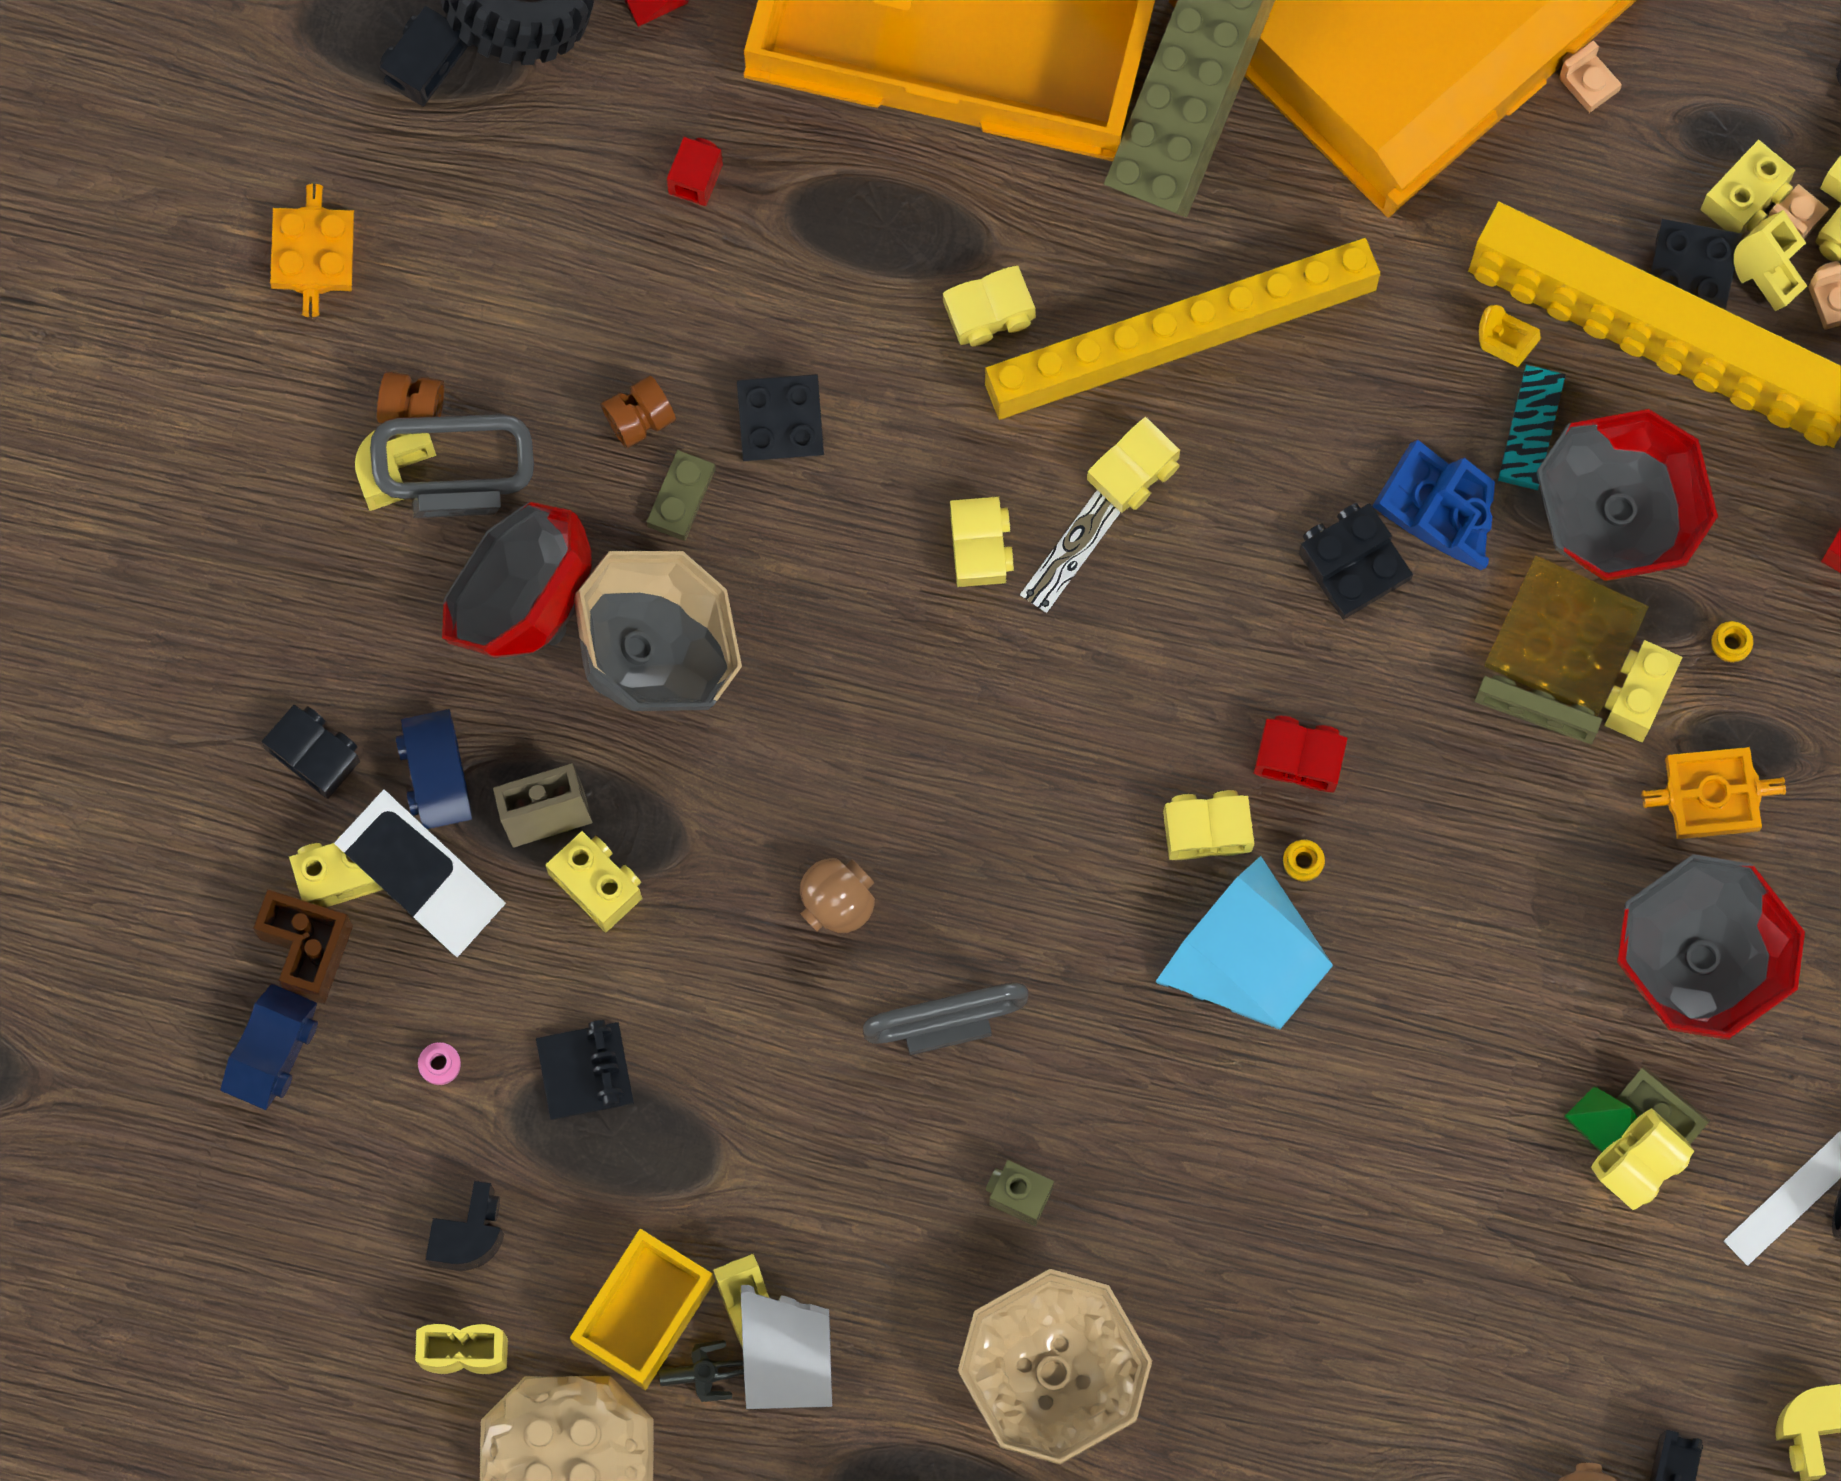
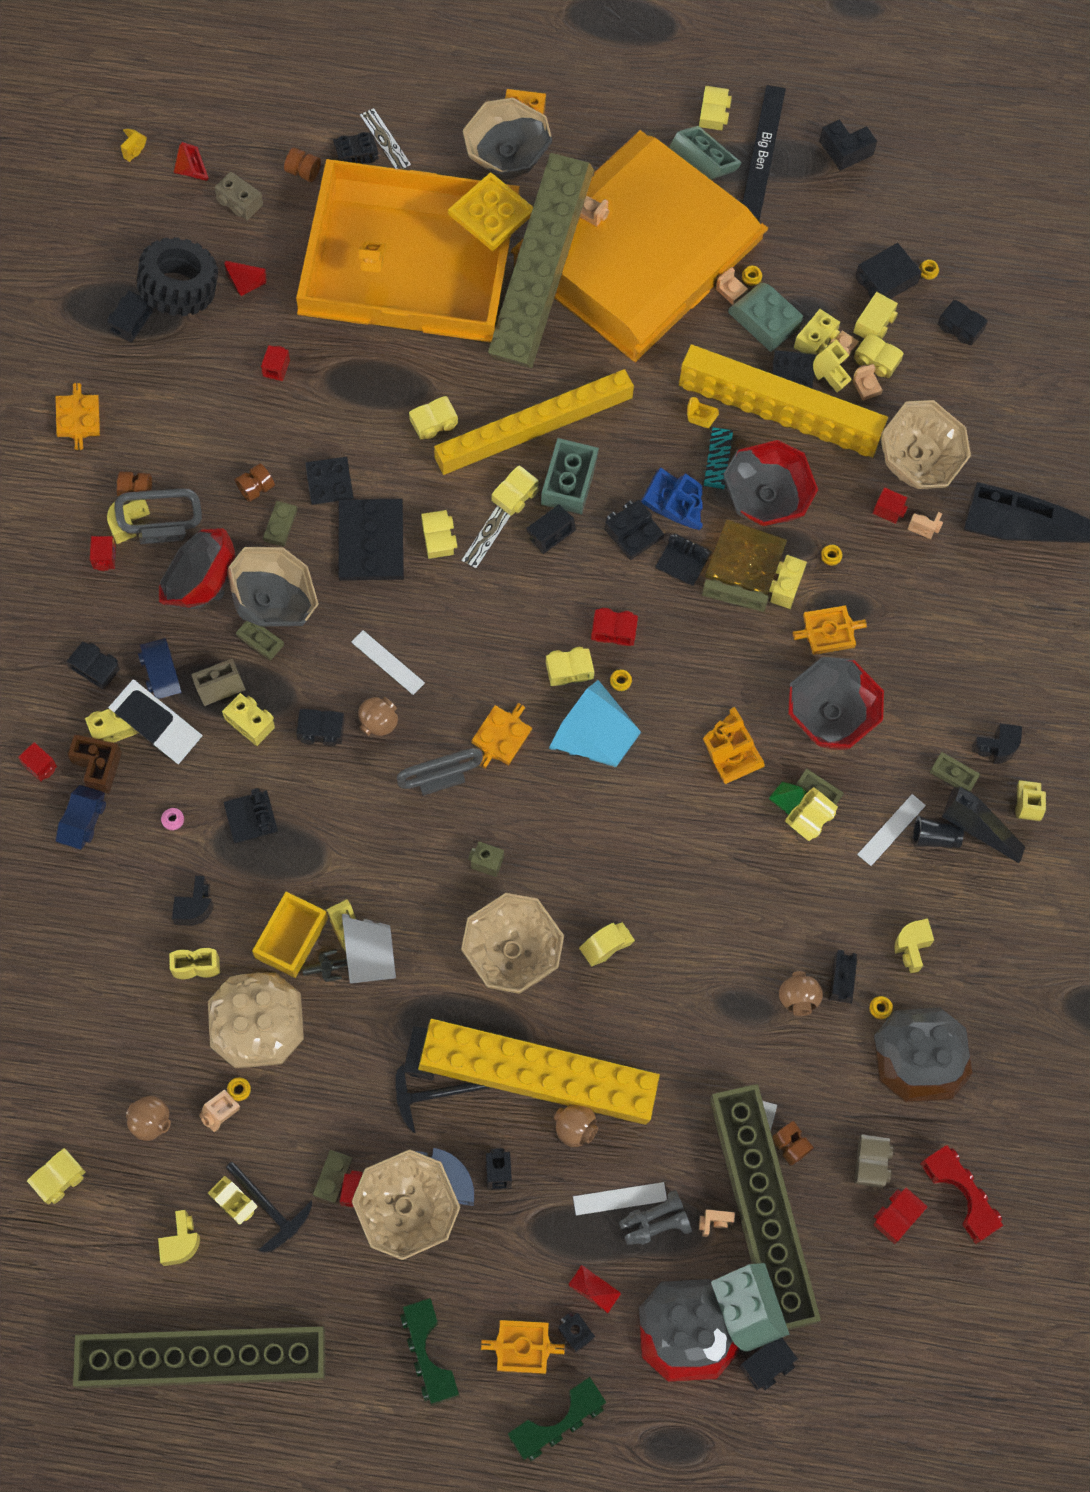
camera: 10 degrees left, 5 degrees down
(197, 933) = (37, 762): none -> red brick
(342, 530) = (102, 552): none -> red brick
(631, 730) = (260, 639): none -> olive plate
(727, 908) = (320, 727): none -> black brick
(850, 540) = (371, 539): none -> black plate
(864, 787) = (388, 662): none -> white sticker
(1068, 950) = (501, 735): none -> light orange plate
(1196, 547) = (551, 528): none -> black hinge
(1231, 1376) = (606, 943): none -> light yellow brick
(1240, 445) = (569, 475): none -> sand green brick
(1445, 628) = (683, 559): none -> black hinge
(1505, 1013) = (732, 748): none -> light orange slope
(1634, 47) = (752, 271): none -> yellow plate
(1652, 143) = (767, 316): none -> sand green brick

